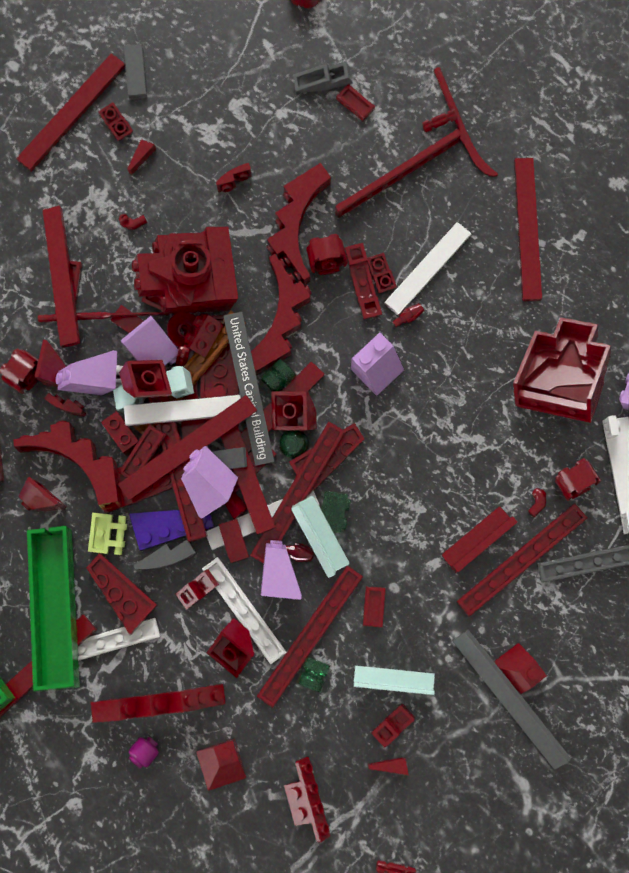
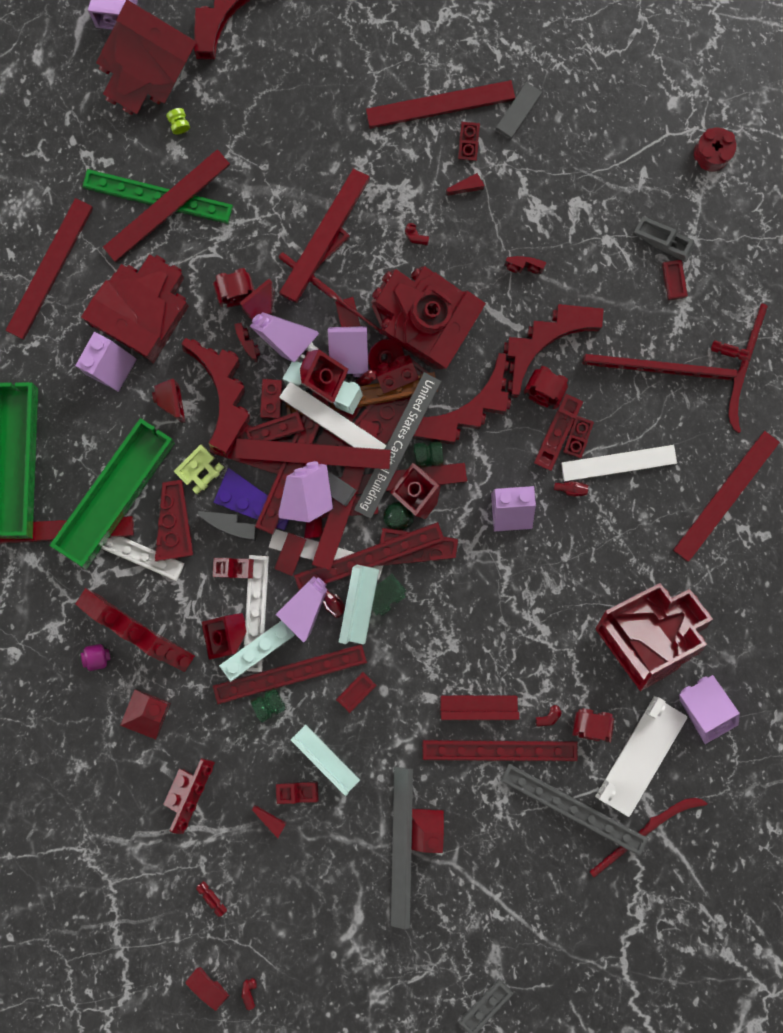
camera: 30 degrees right, 5 degrees up
(269, 638) = (256, 650): none -> light aqua arch

